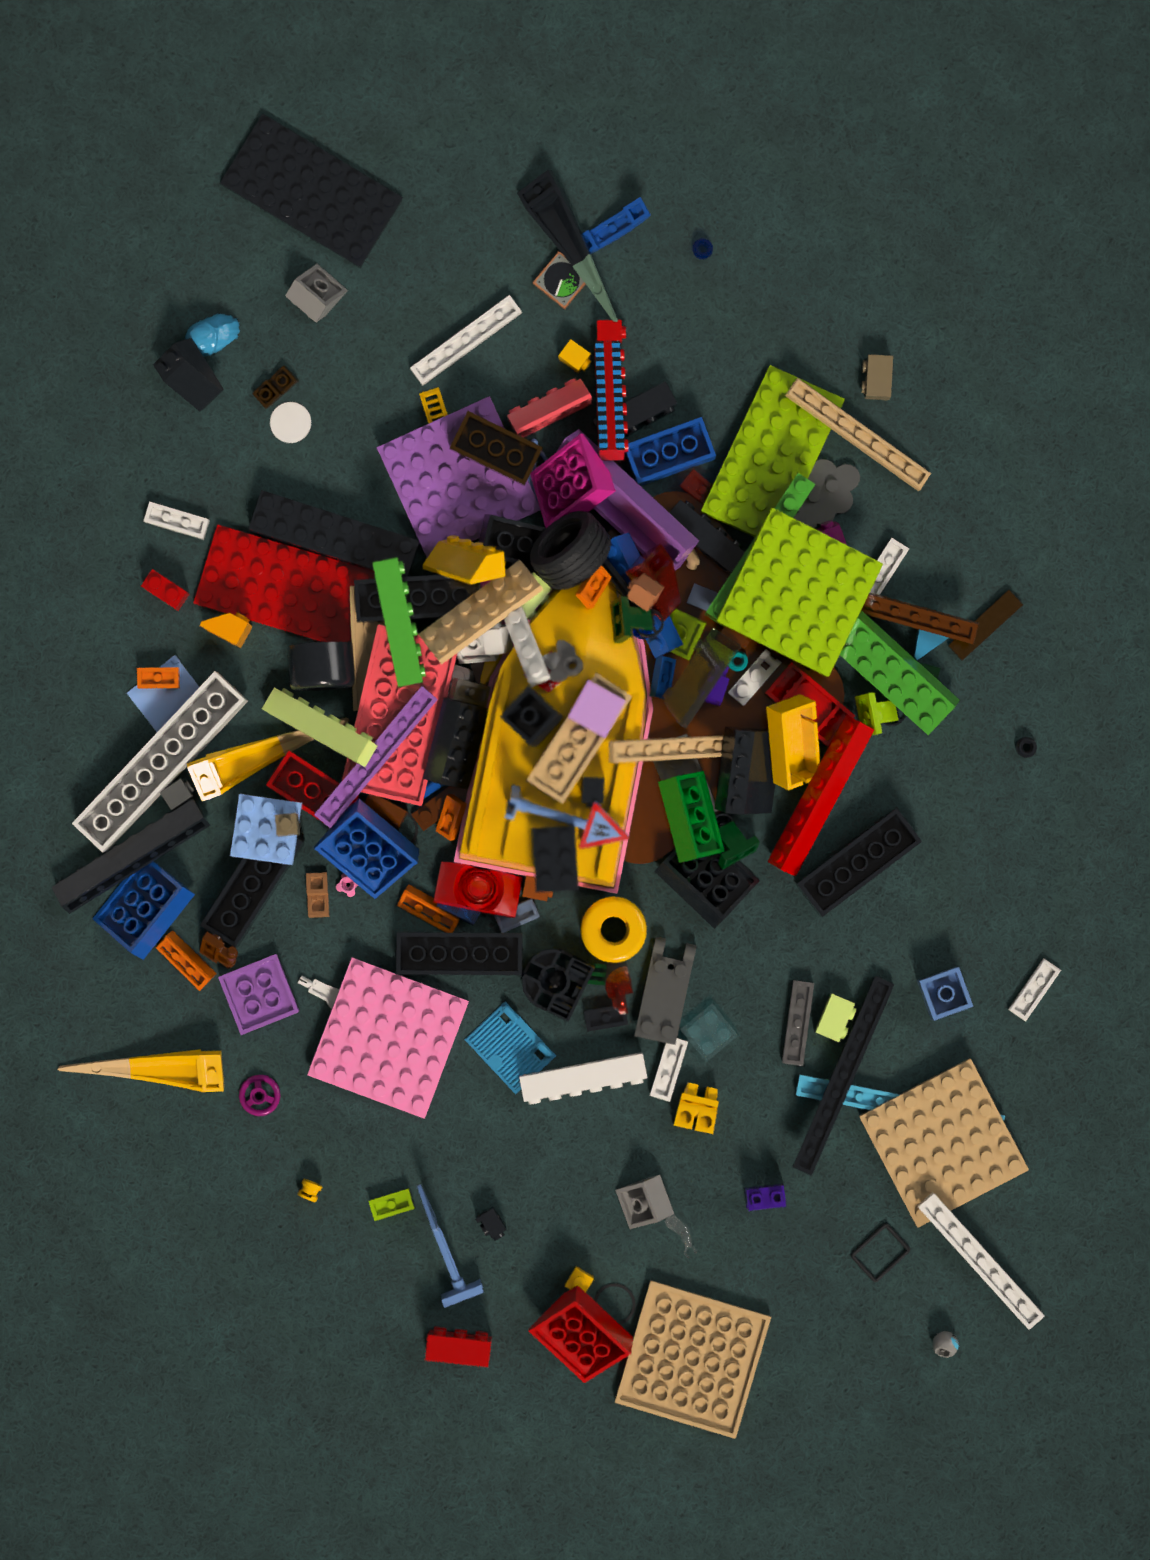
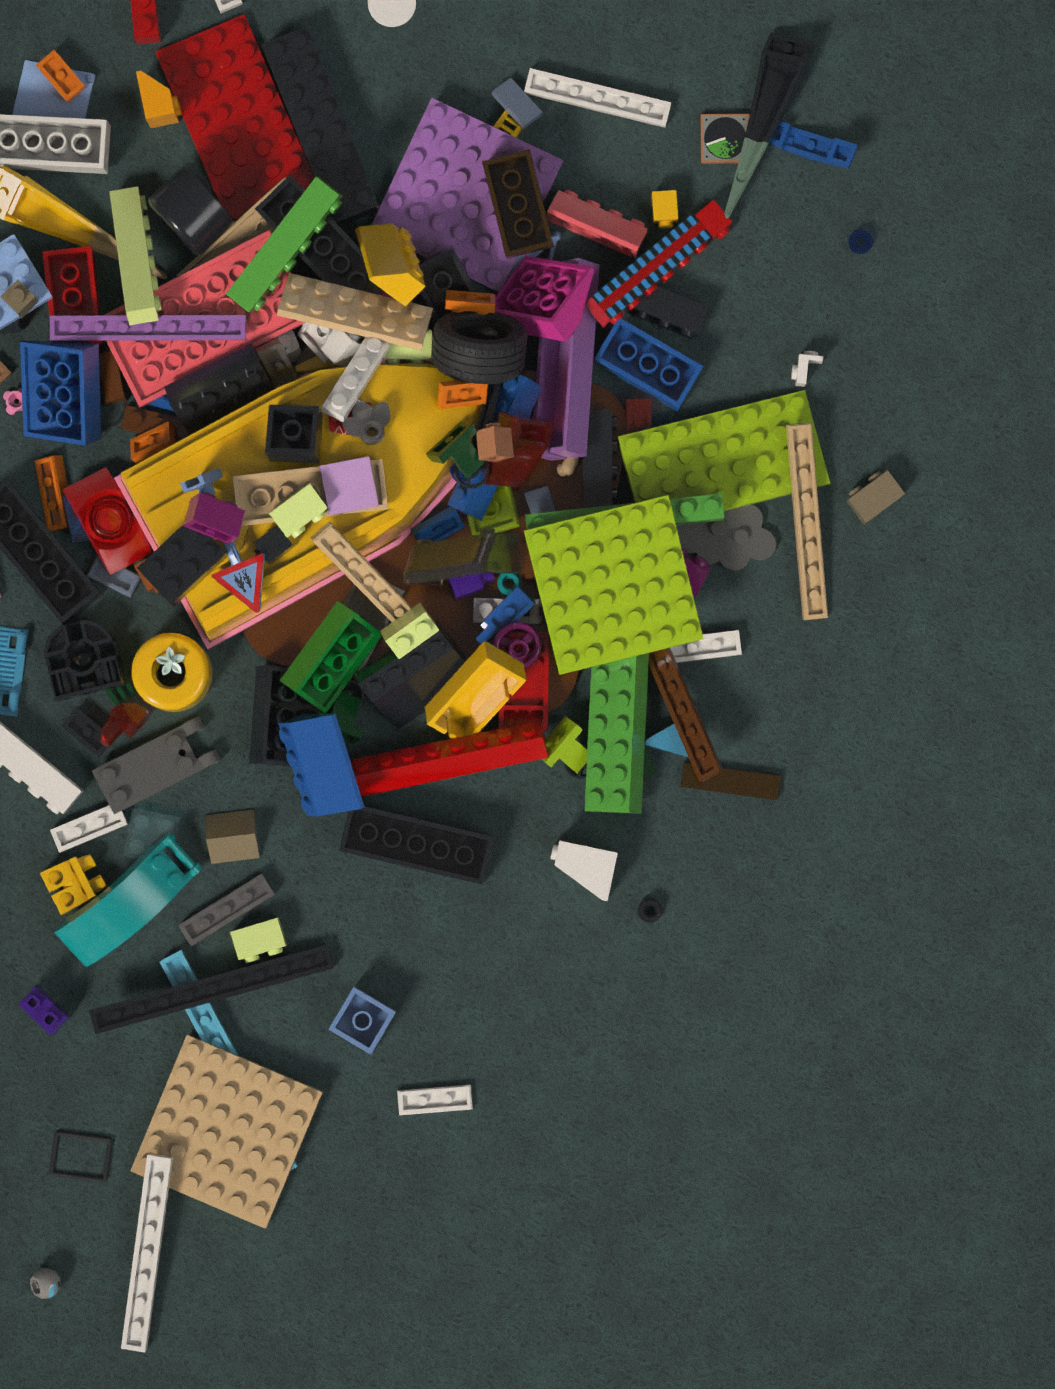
camera: 45 degrees right, 0 degrees up
(426, 395) = (517, 103): none -> sand blue tile
(534, 532) = (470, 301): none -> orange plate
(546, 813) = (214, 517): none -> magenta brick
(586, 755) = (298, 510): none -> yellowish green brick
(608, 923) = (170, 661): none -> light aqua plant
(719, 750) = (409, 630): none -> yellowish green brick
(741, 1083) = (127, 902): none -> teal windscreen
(752, 979) = (232, 836): none -> dark tan slope
(755, 357) = (799, 371): none -> white bracket
(757, 881) = (320, 764): none -> blue slope
(758, 680) = (508, 611): none -> blue hinge
(792, 687) = (521, 653): none -> magenta piece
(965, 763) = (587, 866): none -> white slope

